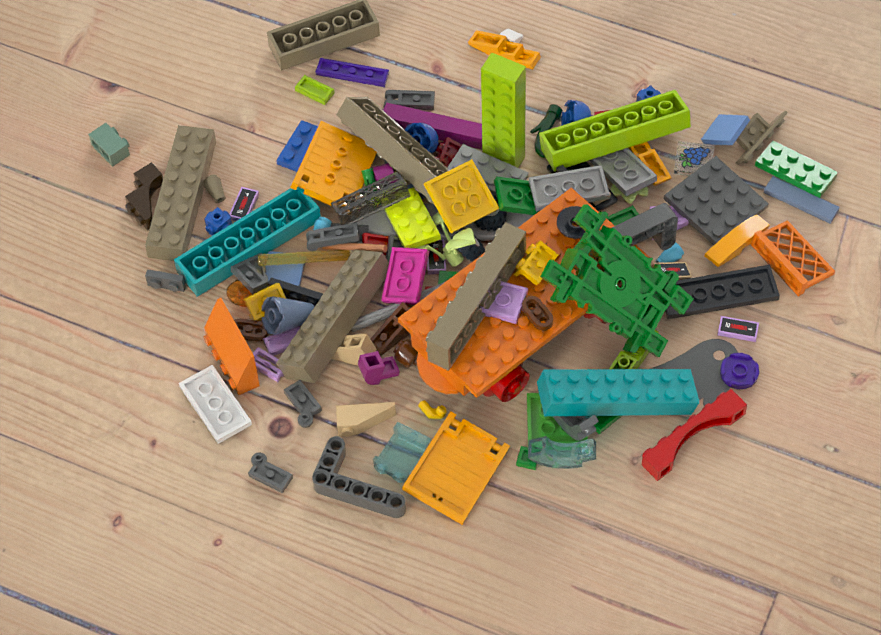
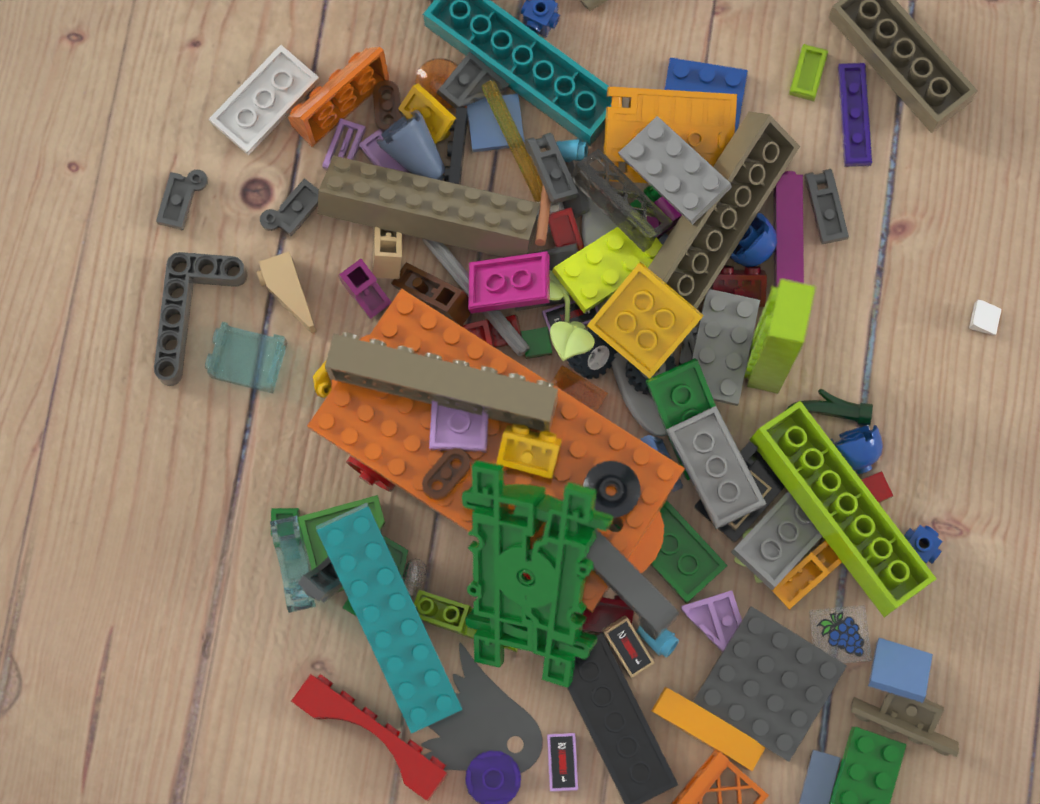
camera: 75 degrees right, 20 degrees up
(244, 203) = (586, 38): tile -> none
(364, 158) = (675, 170): none -> light grey plate
(455, 468) = (240, 432): light orange door -> none
(499, 45) = (957, 314): light orange slope -> none

